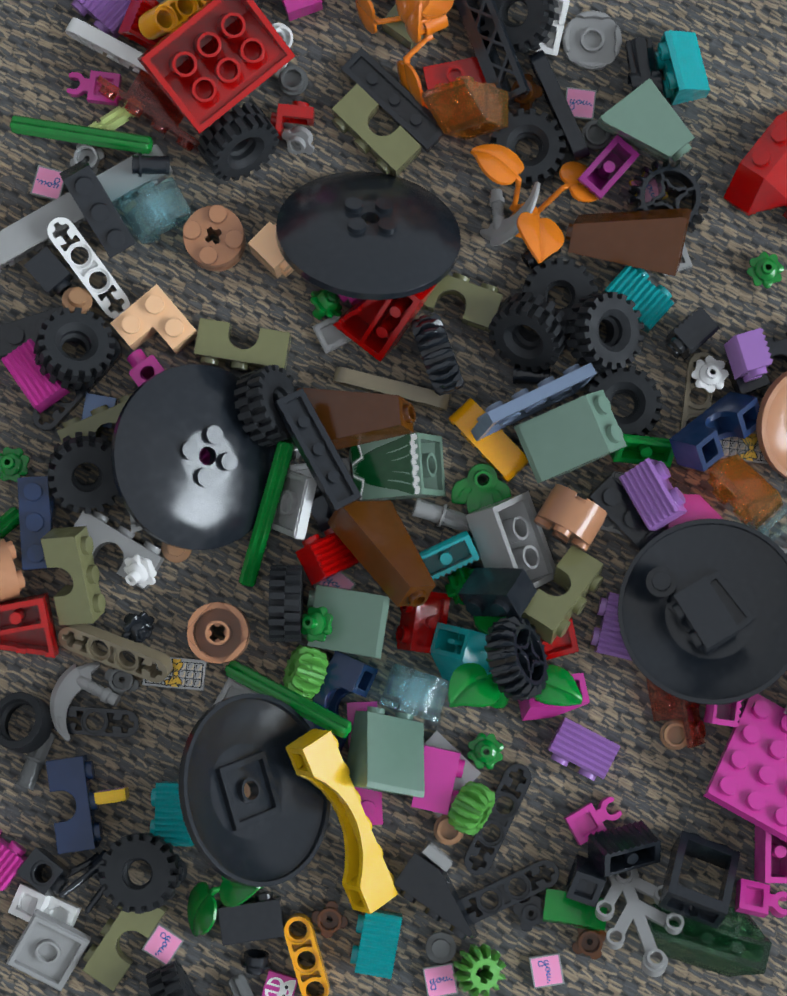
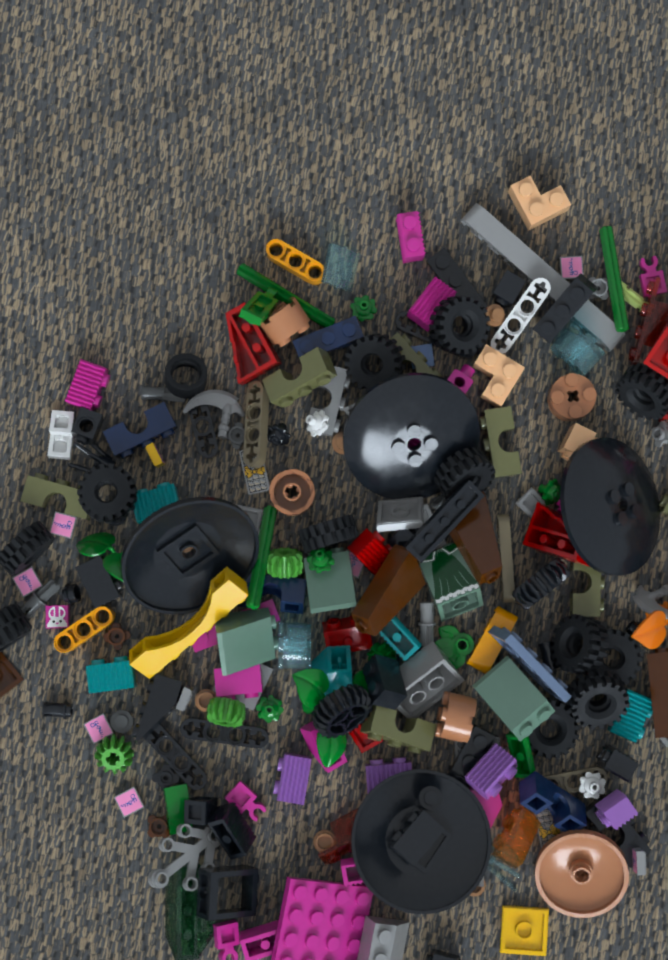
camera: 75 degrees right, 0 degrees up
(48, 950) = (34, 447): light grey tile -> none
(150, 164) = (608, 335): black pin -> none
(266, 513) = (387, 498): green axle -> none

